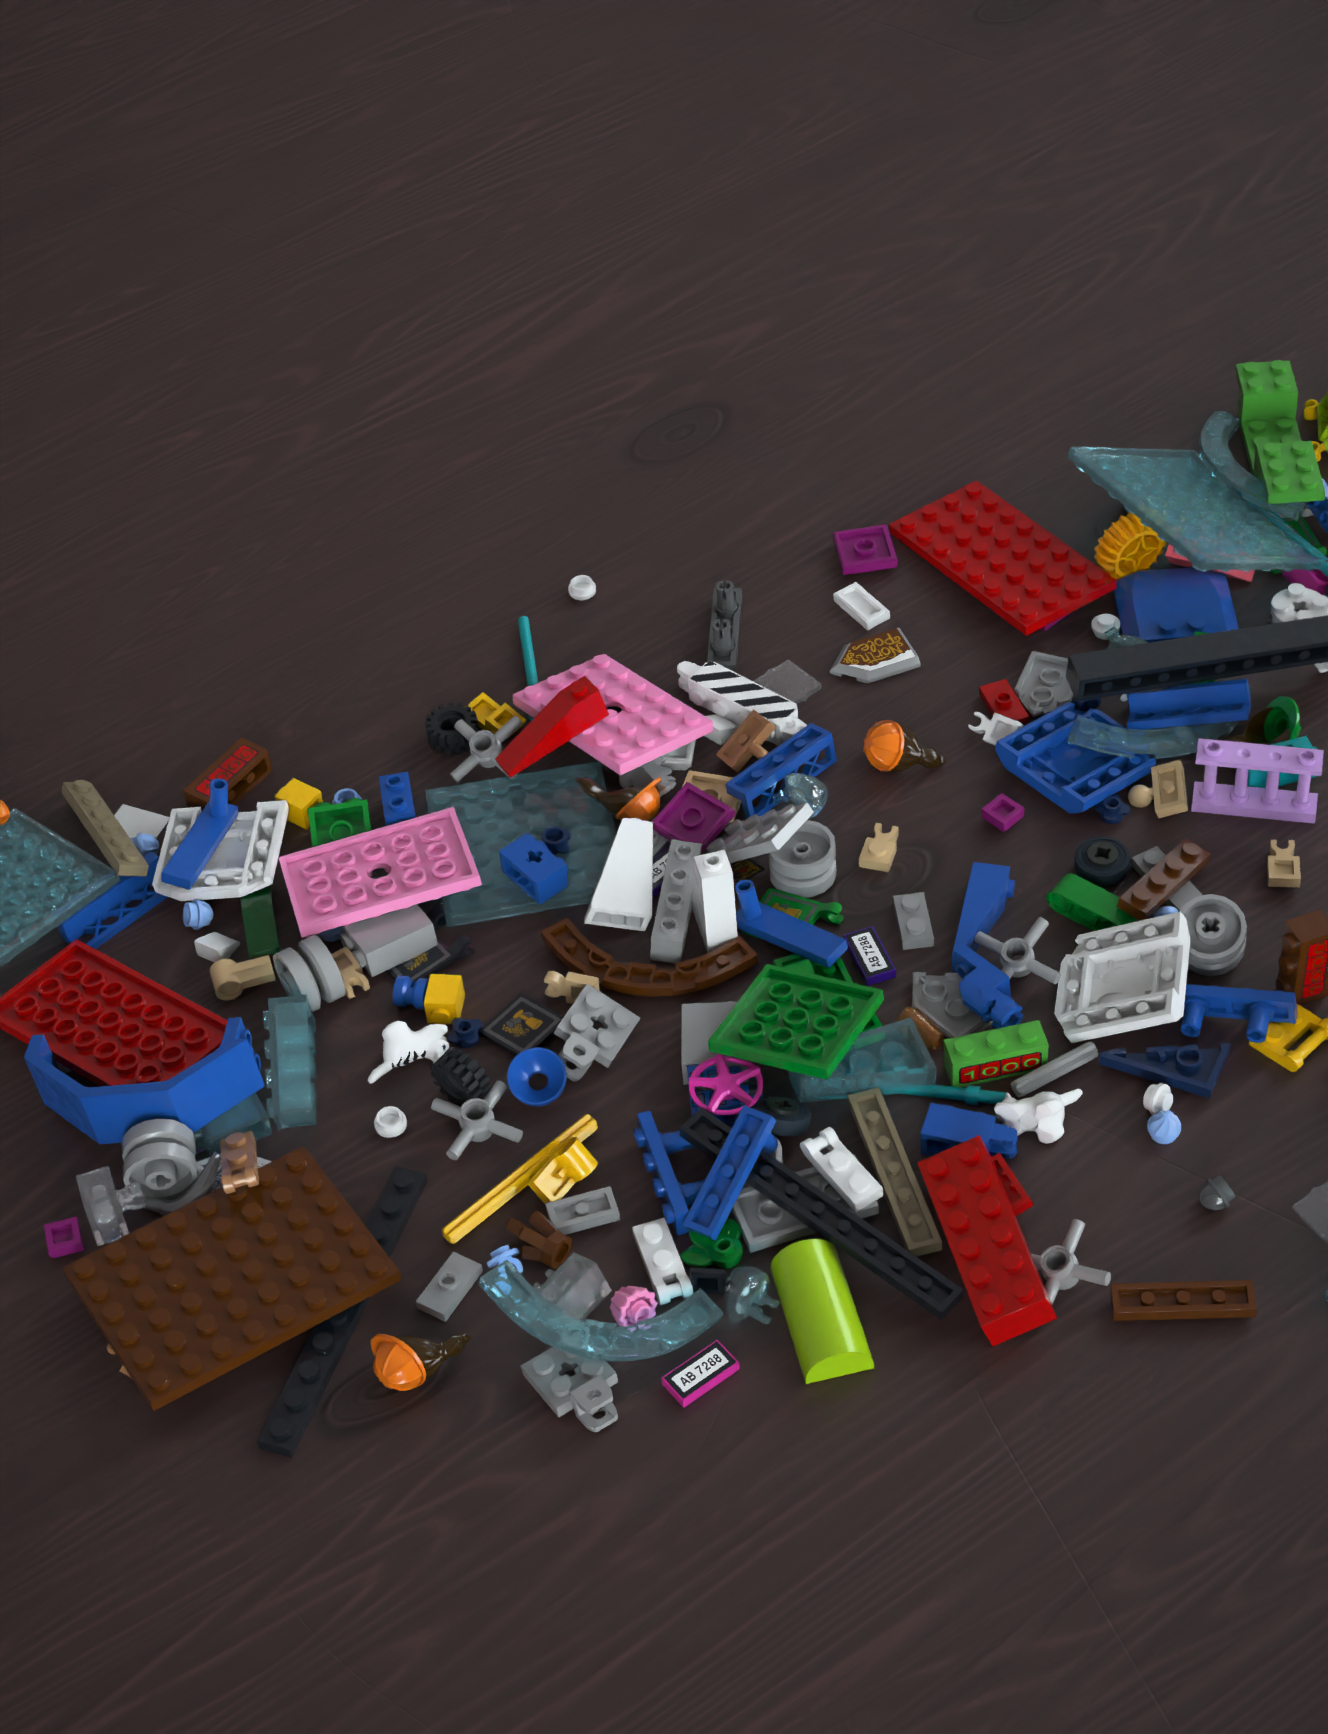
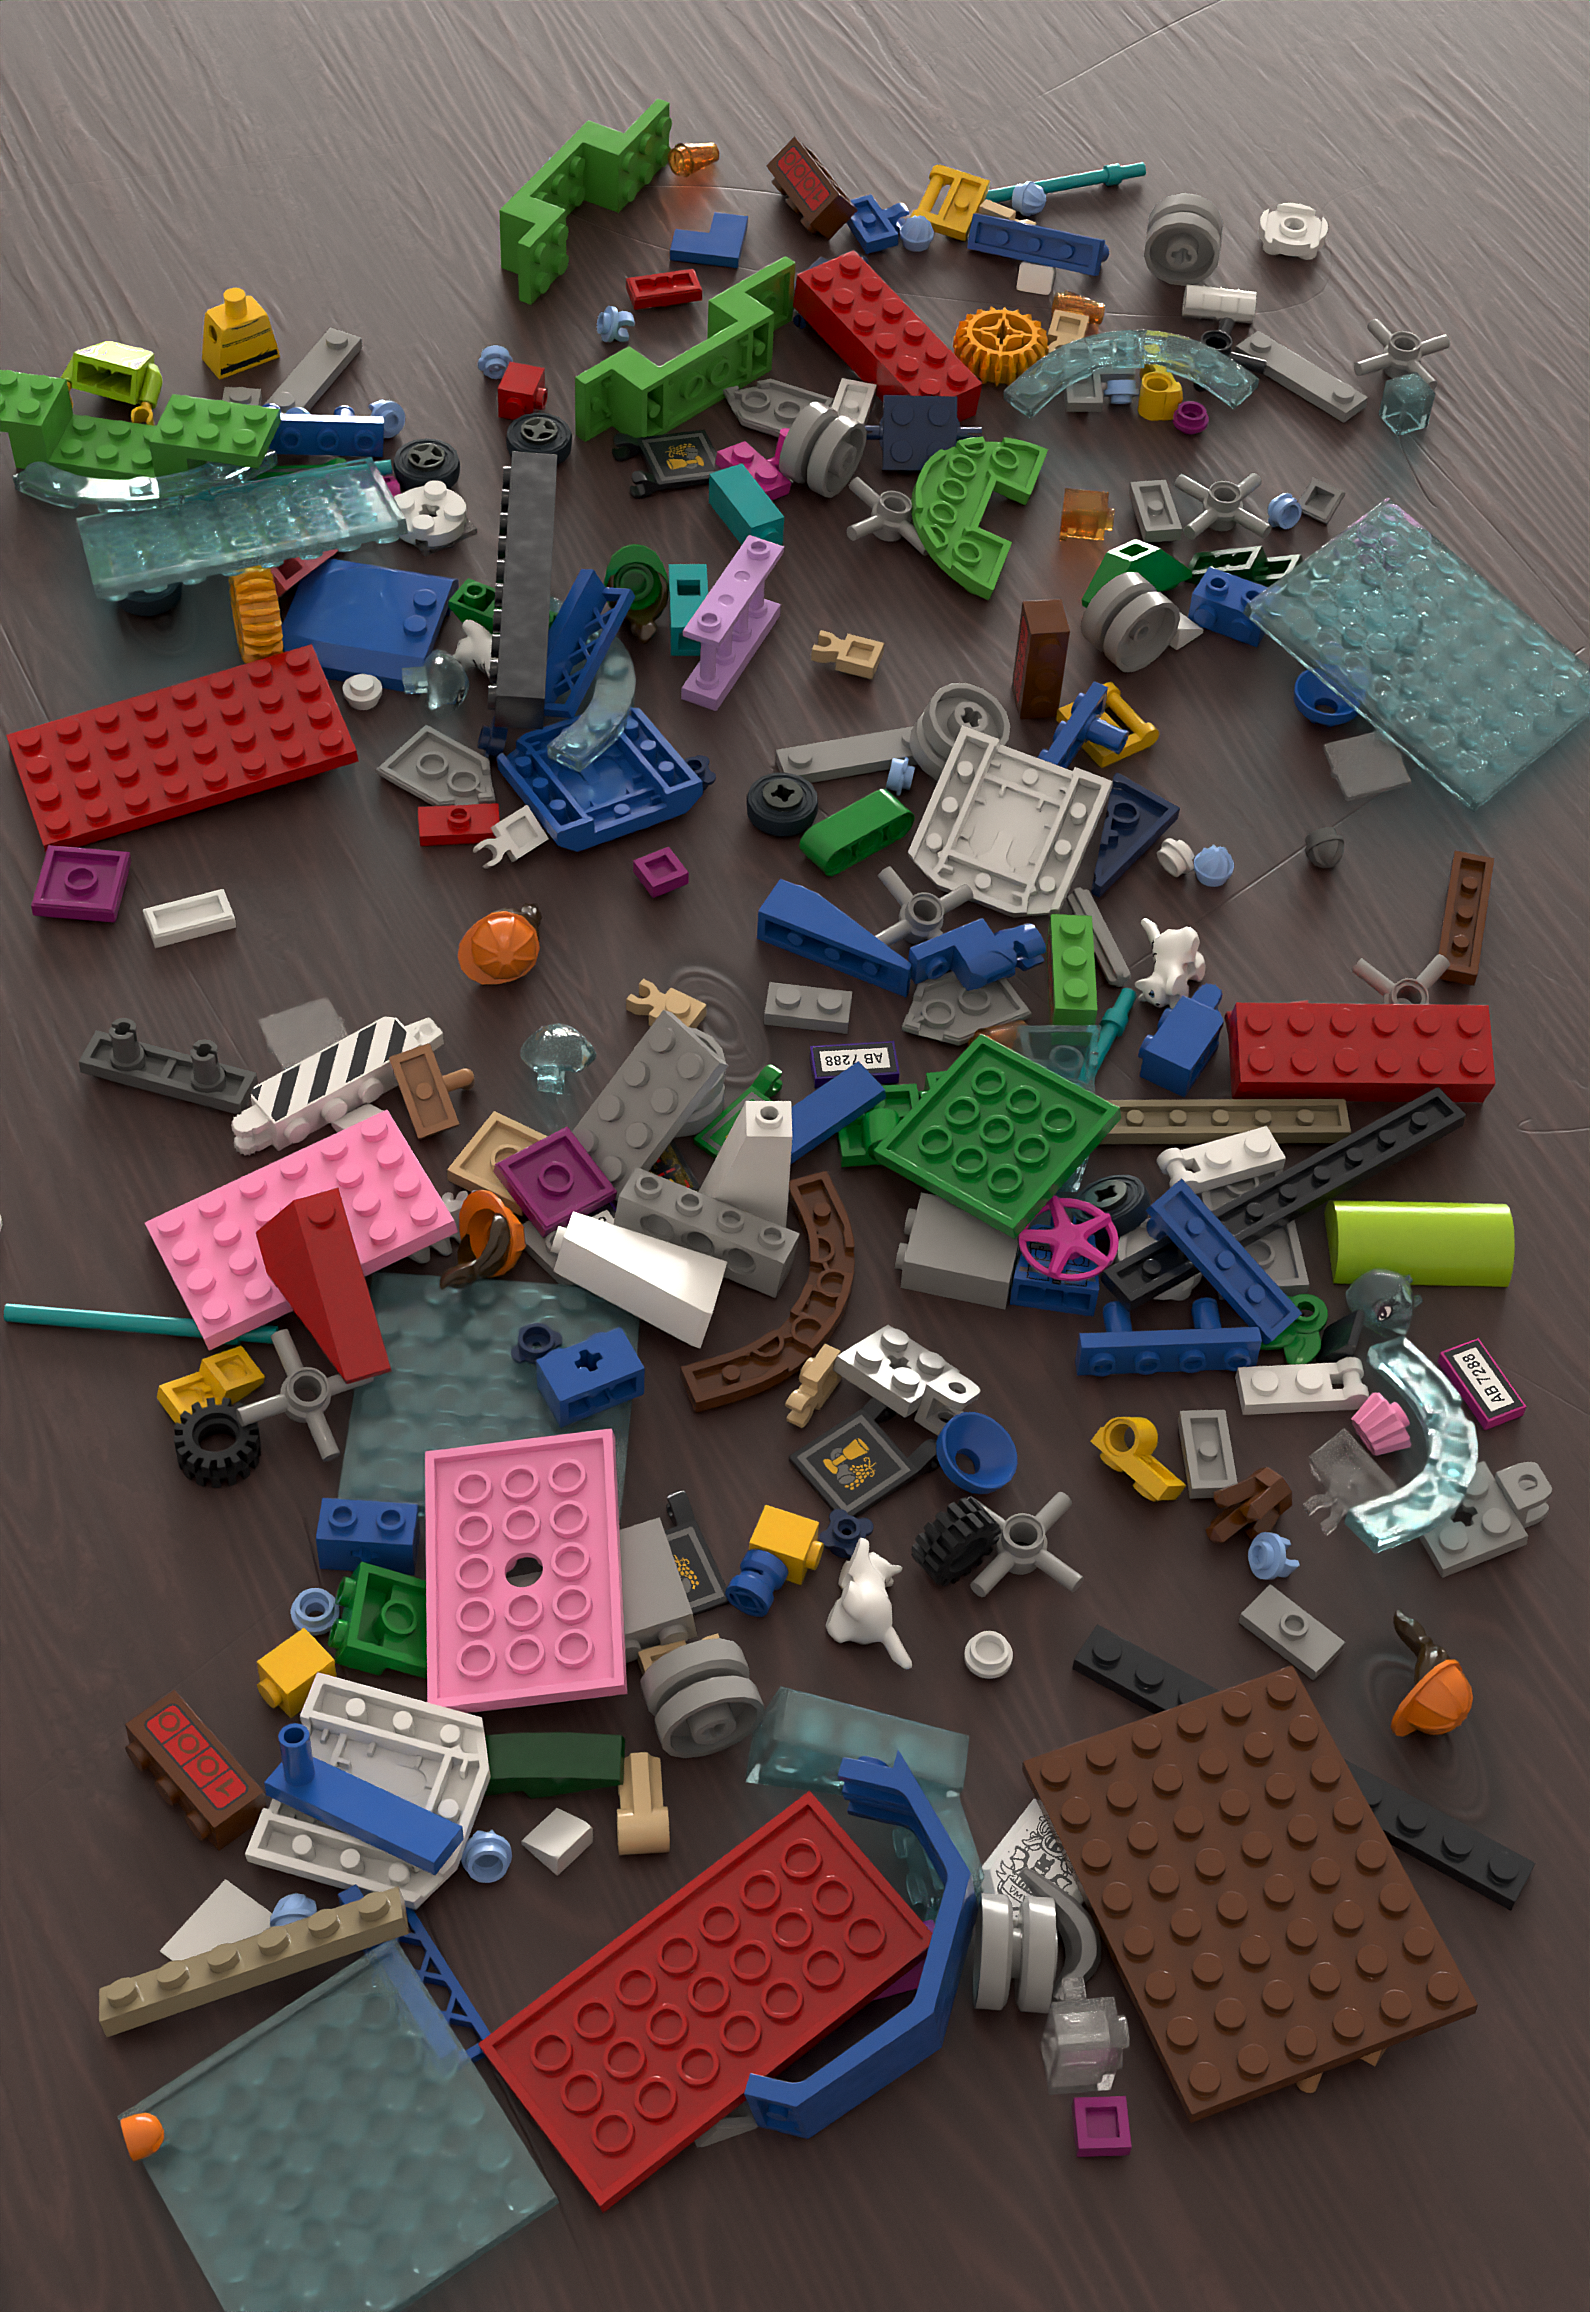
camera: 85 degrees left, 5 degrees up
(239, 1161) = (1049, 1842): medium nougat plate -> none
(513, 1183) = (1130, 1518): yellow axle -> none
(783, 760) = (493, 1064): blue fence -> none
(876, 657) = (299, 927): tile -> none
(1164, 880) = (850, 752): reddish brown plate -> none
(1167, 790) = (687, 714): tan plate -> none

